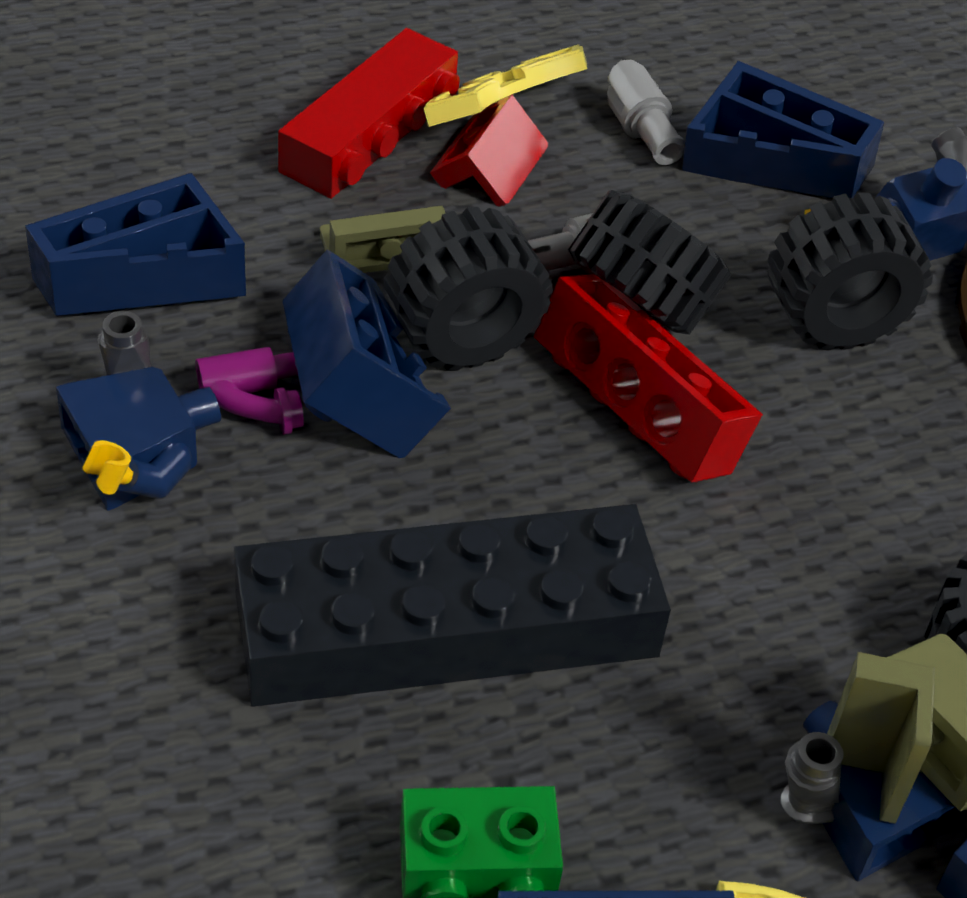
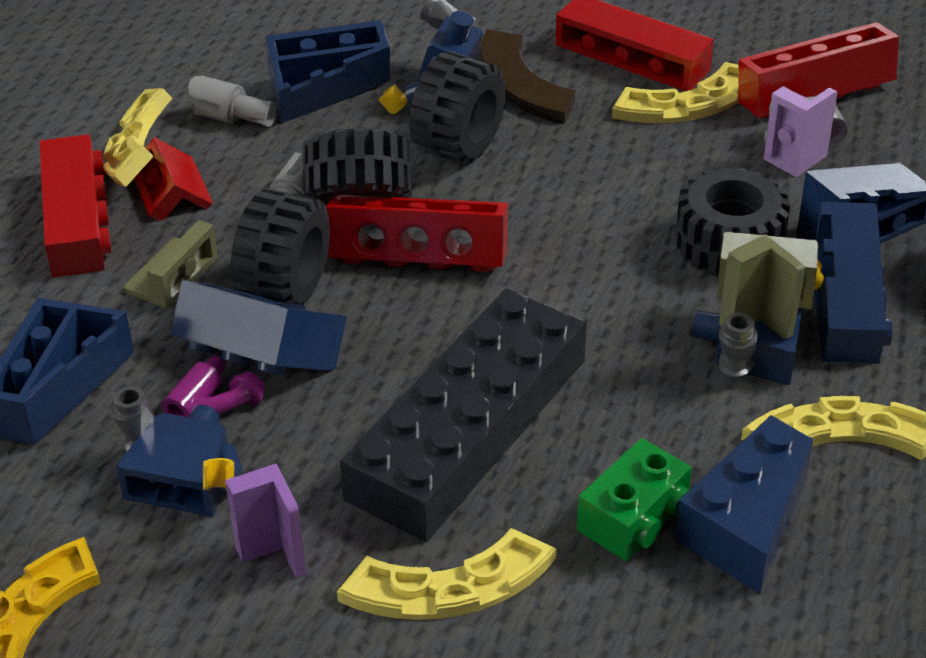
camera: 40 degrees left, 5 degrees down
(104, 546) = (265, 517): none -> medium lavender panel
(208, 782) = (425, 594): none -> light yellow tile

